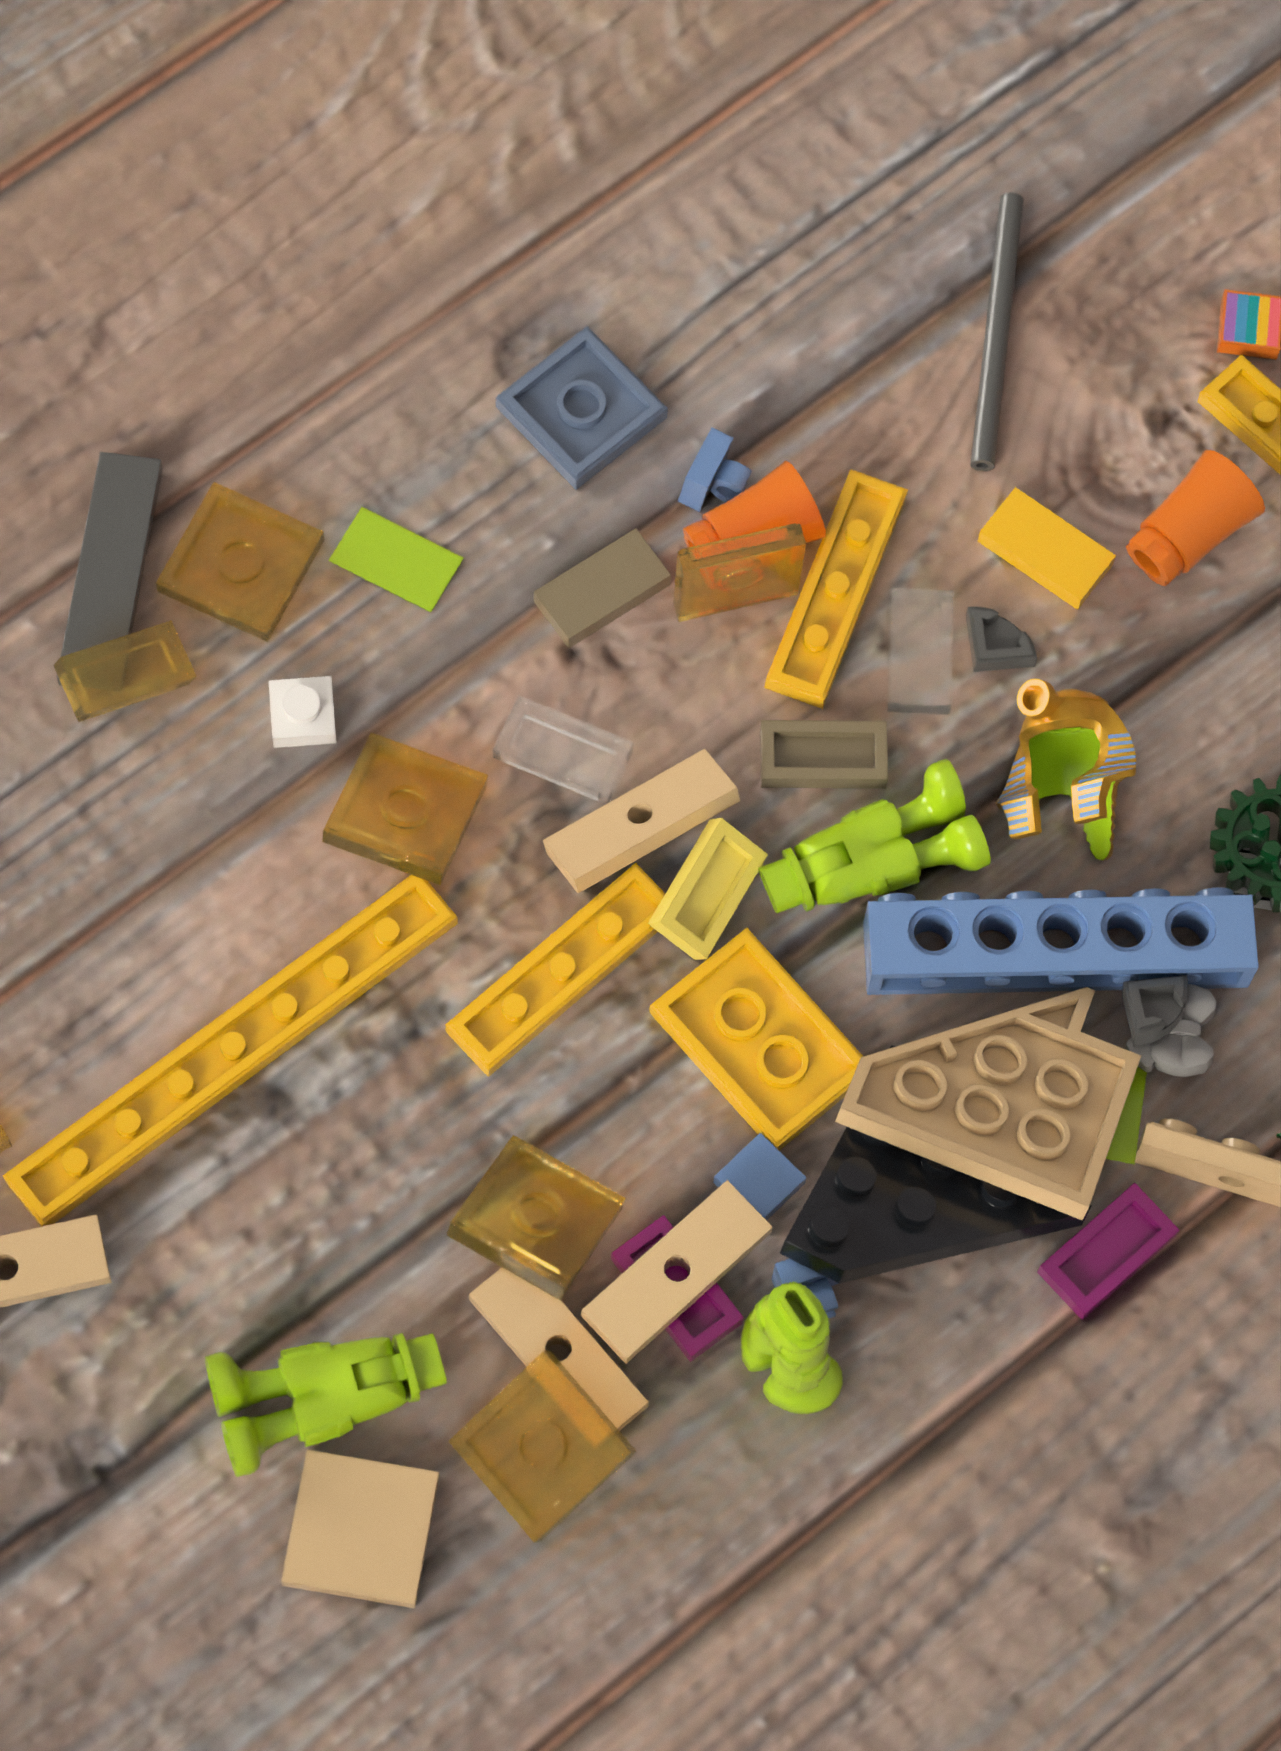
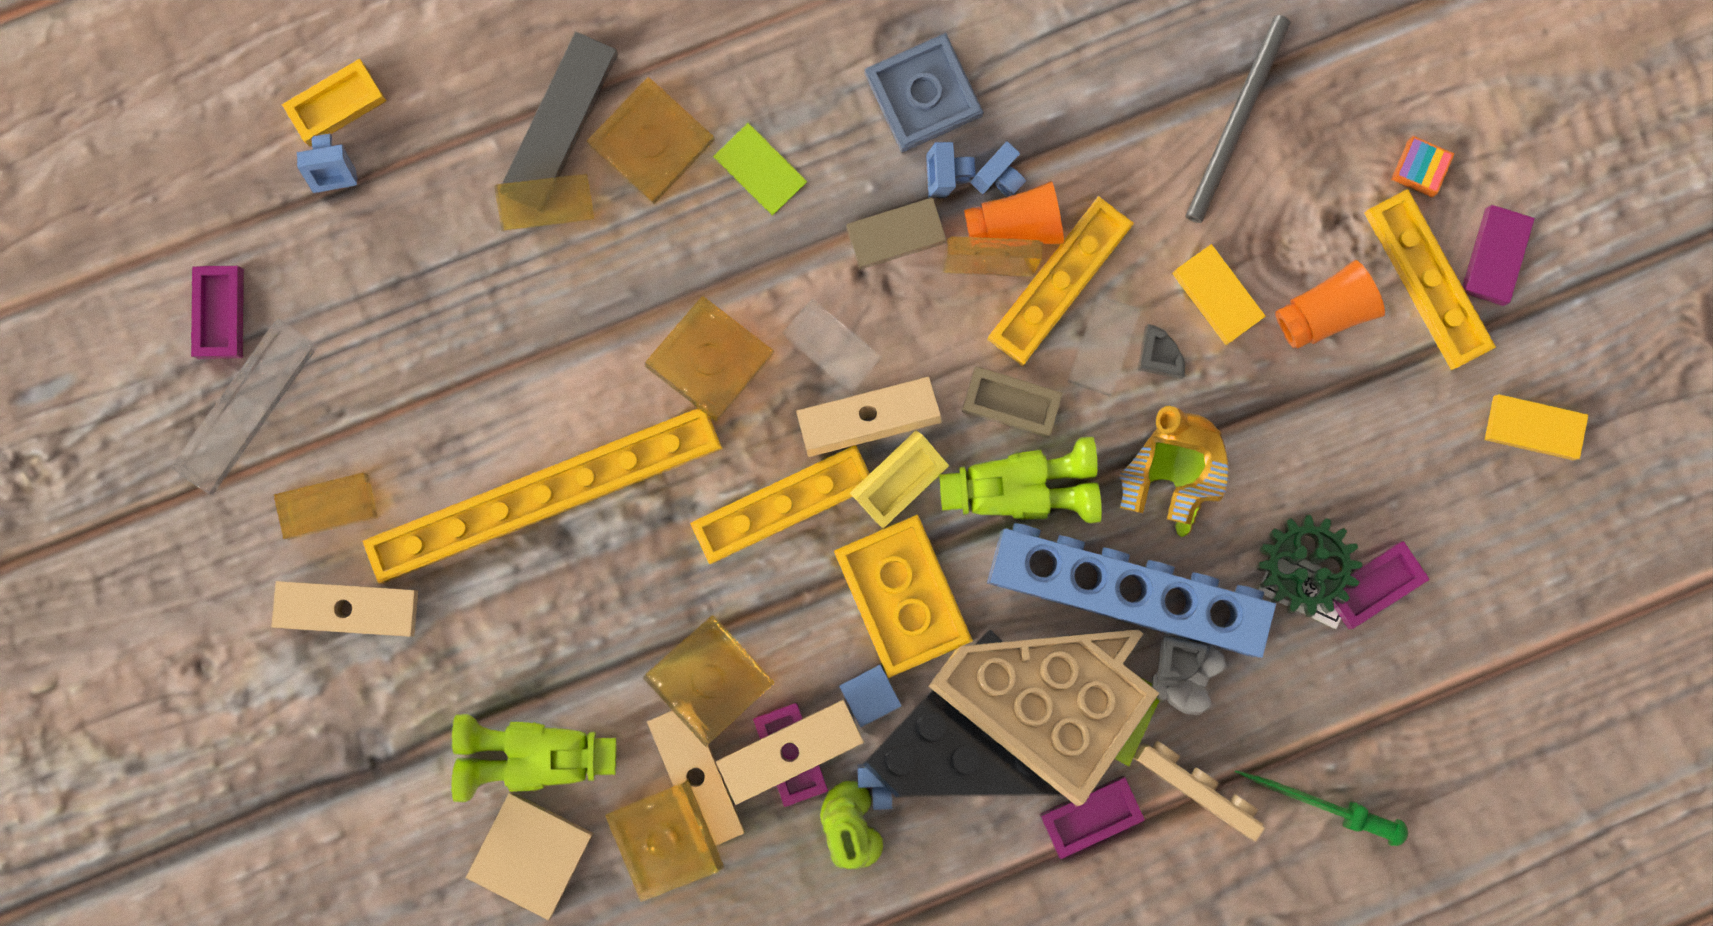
camera: 20 degrees right, 15 degrees up
(302, 711) = (660, 264): white plate -> none
(643, 489) = (945, 170): none -> medium blue tile

